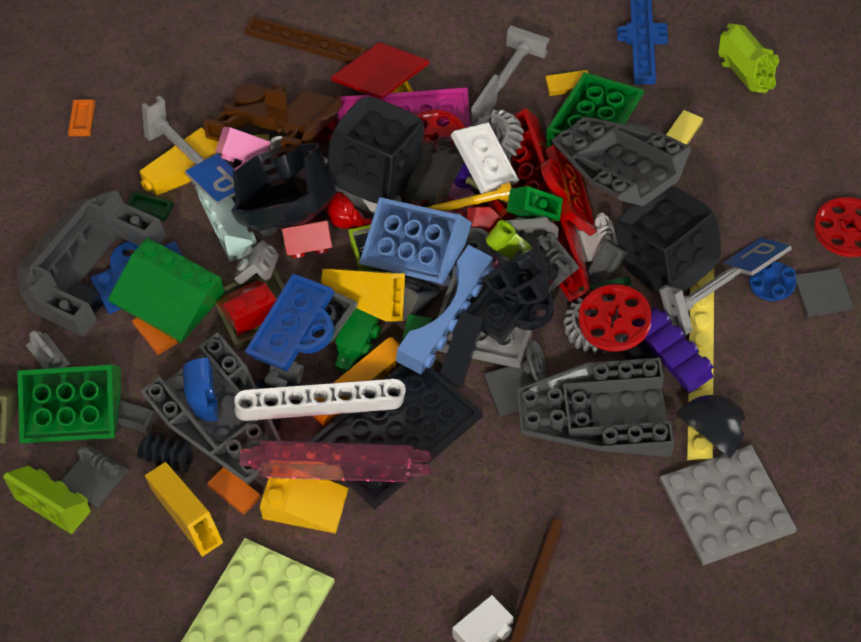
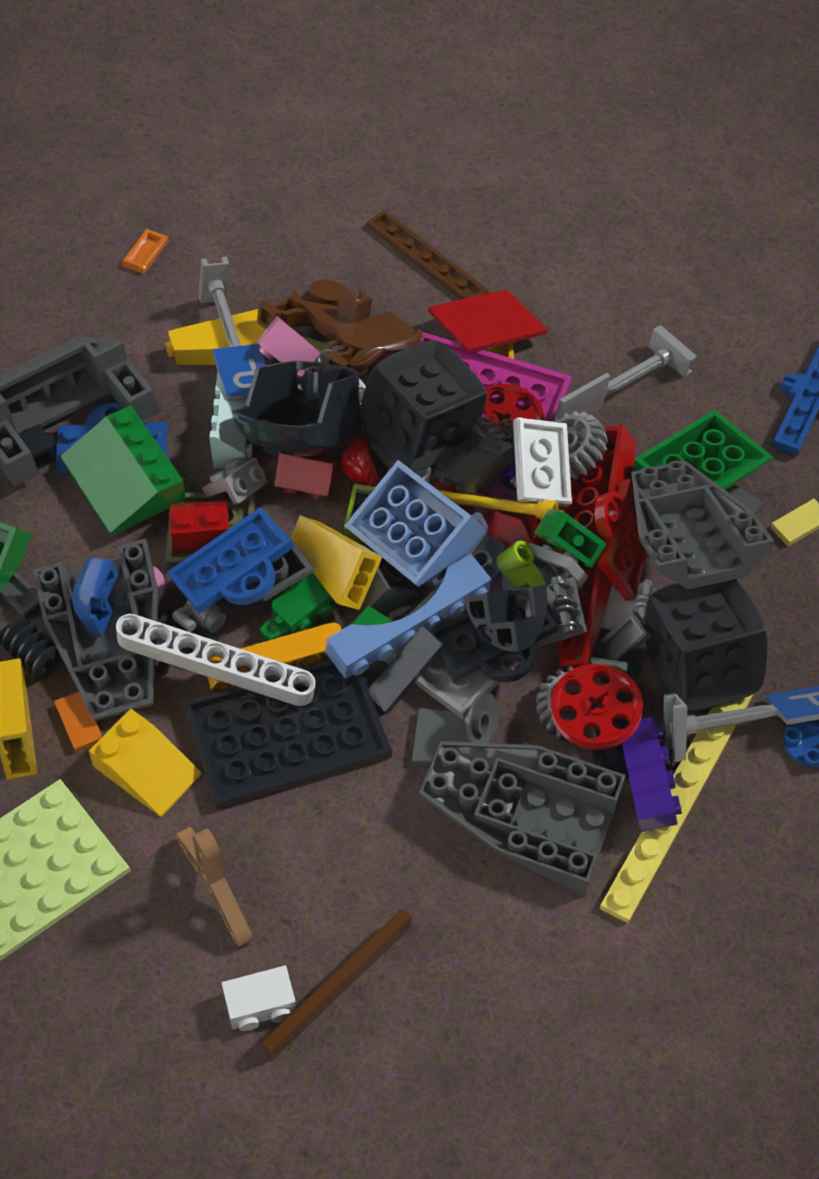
camera: 20 degrees right, 0 degrees up
(151, 205) = (162, 373): dark green tile -> none
(156, 339) = (89, 521): orange tile -> none
(336, 461) = (194, 736): clear pink hinge -> none
(401, 548) = (206, 859): none -> medium nougat piece
(563, 83) = (686, 412): yellow tile -> none
(716, 420) = (652, 877): black brick -> none
(727, 505) = (618, 983): light grey plate -> none

